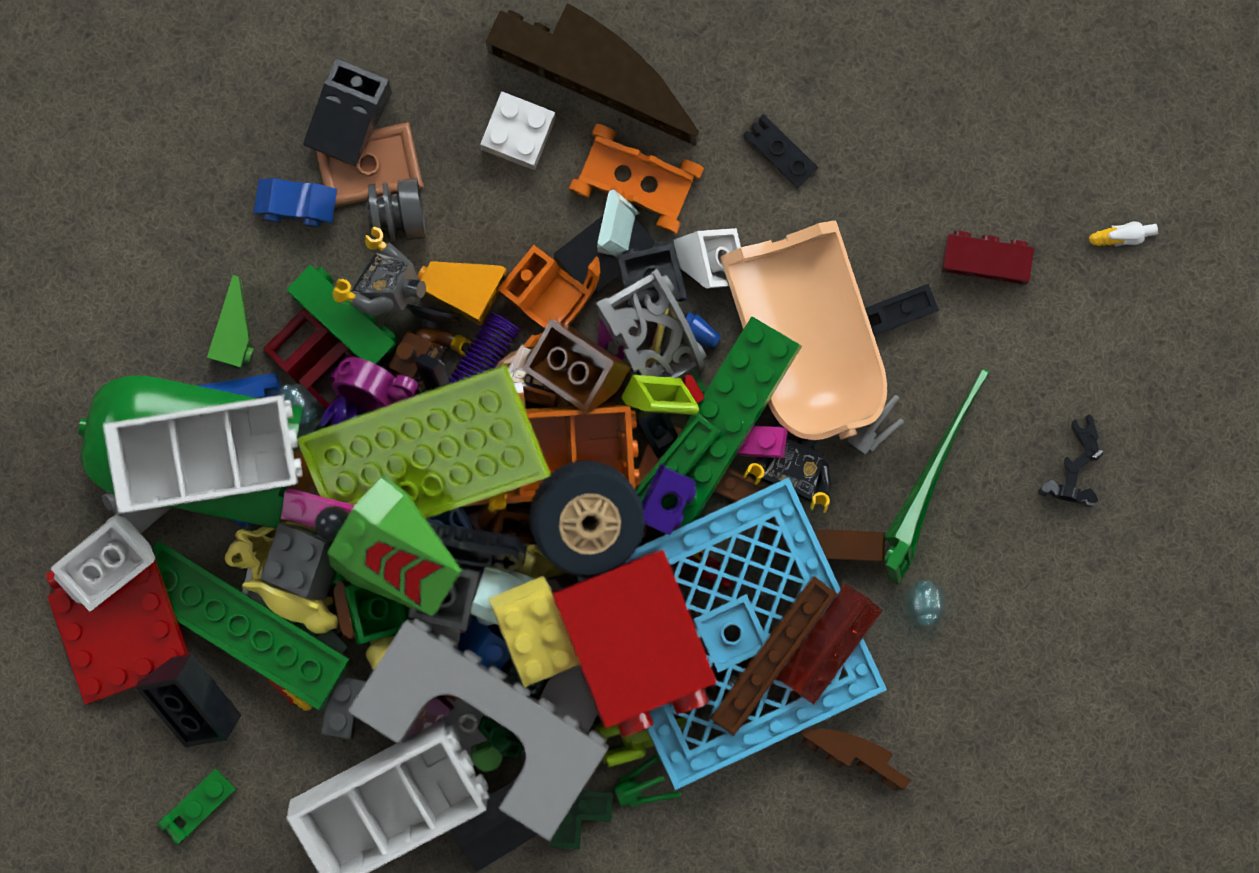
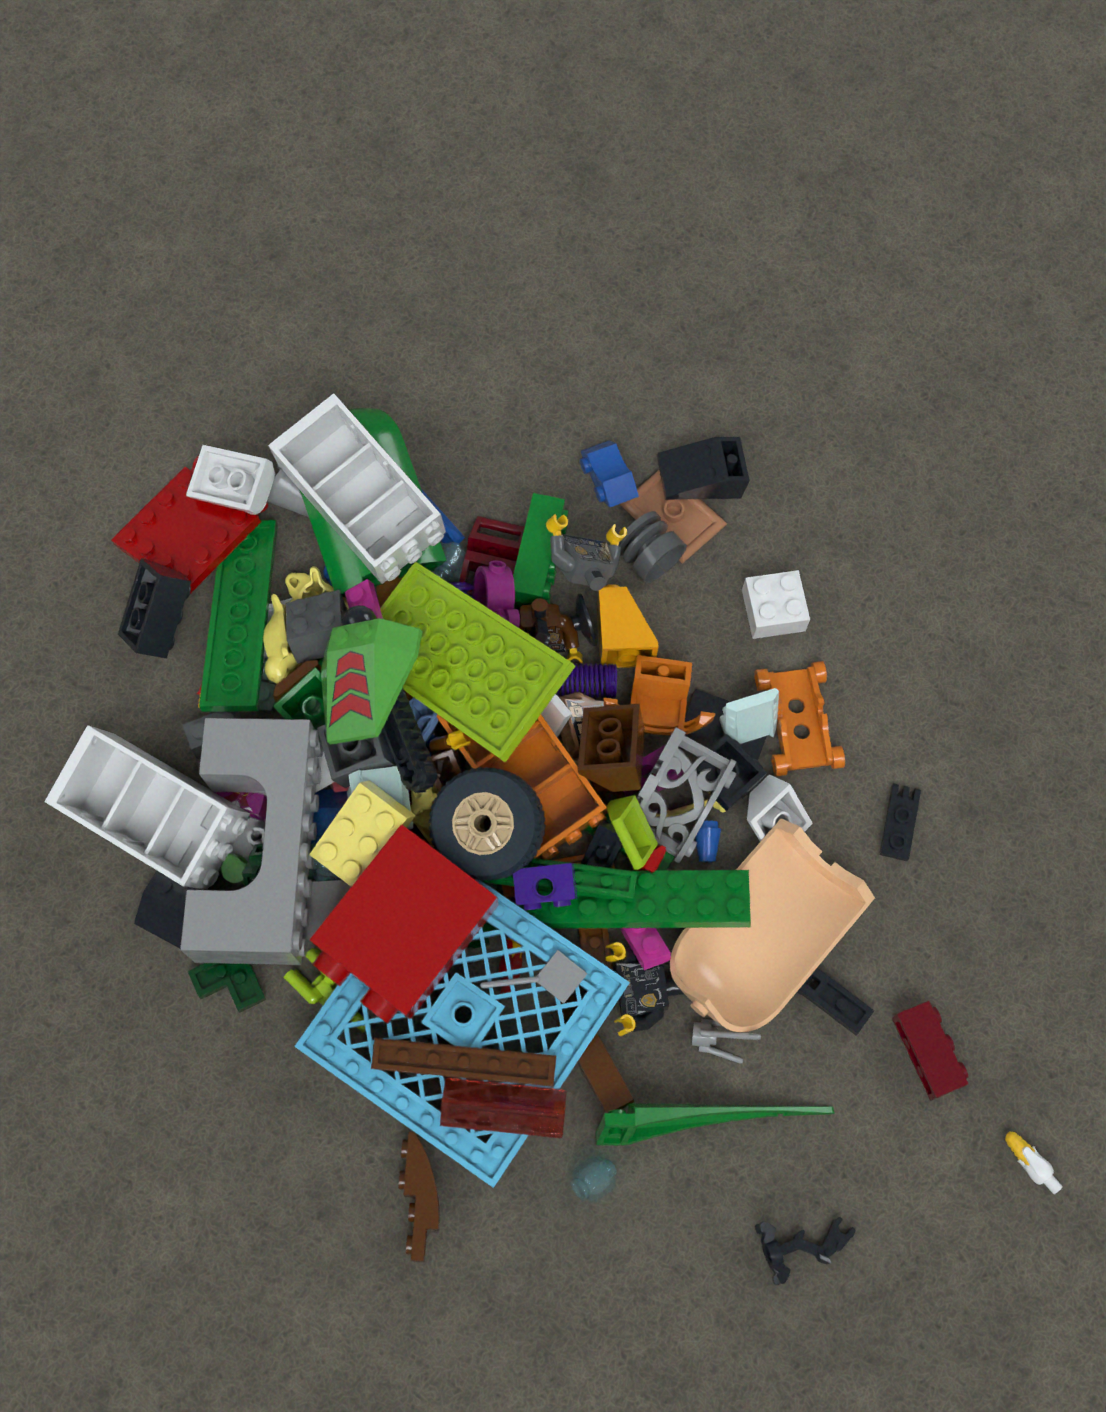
camera: 55 degrees right, 15 degrees down
(197, 806) = (72, 668): green plate -> none
(232, 335) = (475, 485): bright green slope -> none
(591, 63) = (868, 626): dark brown slope -> none
(629, 791) = (274, 1012): green plant -> none
(749, 535) = (558, 977): none -> light grey piece

